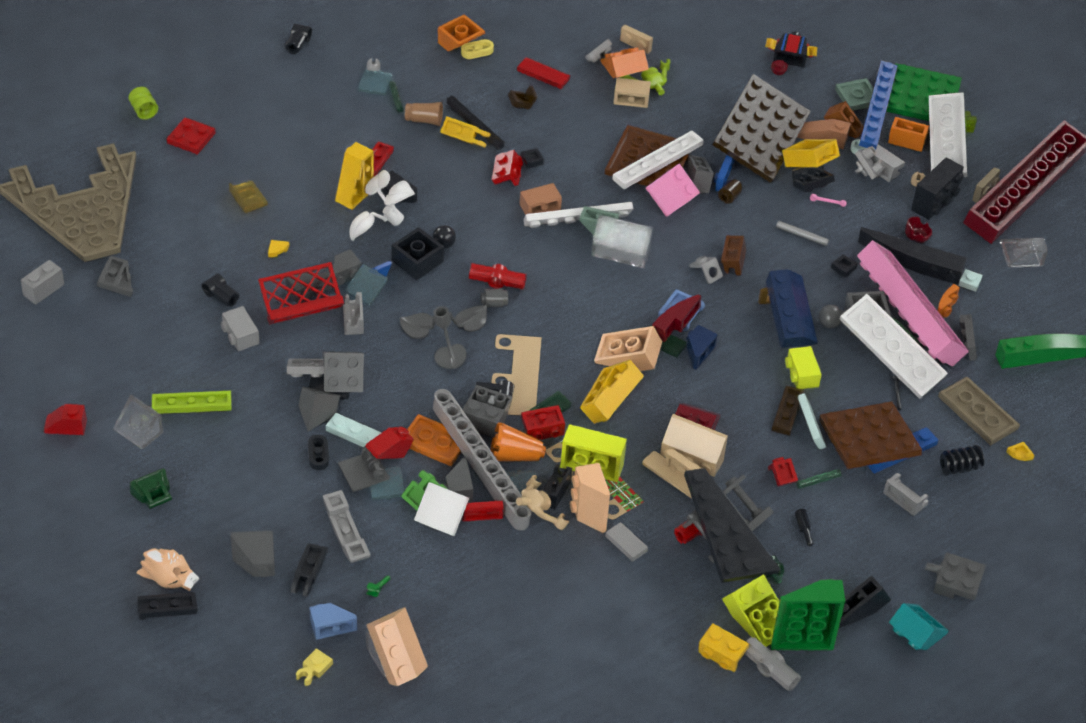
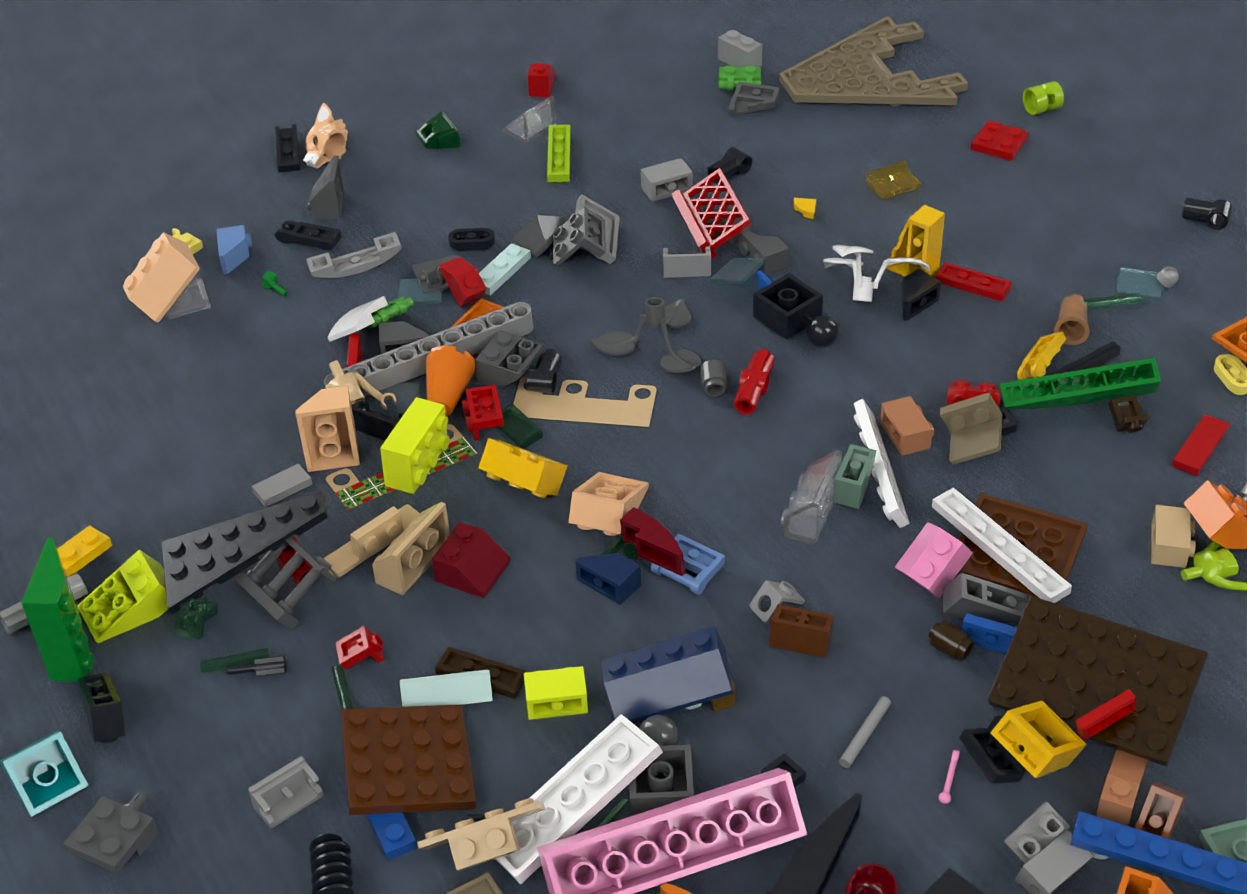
camera: 100 degrees right, 5 degrees down
(73, 286) = (730, 76): none -> bright green plate
(500, 110) = (1083, 386): none -> green slope
(552, 166) = (973, 427): none -> dark tan bracket
(794, 122) = (1106, 714): none -> red tile
(800, 542) = (237, 659): none -> clear green piece
(924, 387) = (485, 839): none -> tan bracket

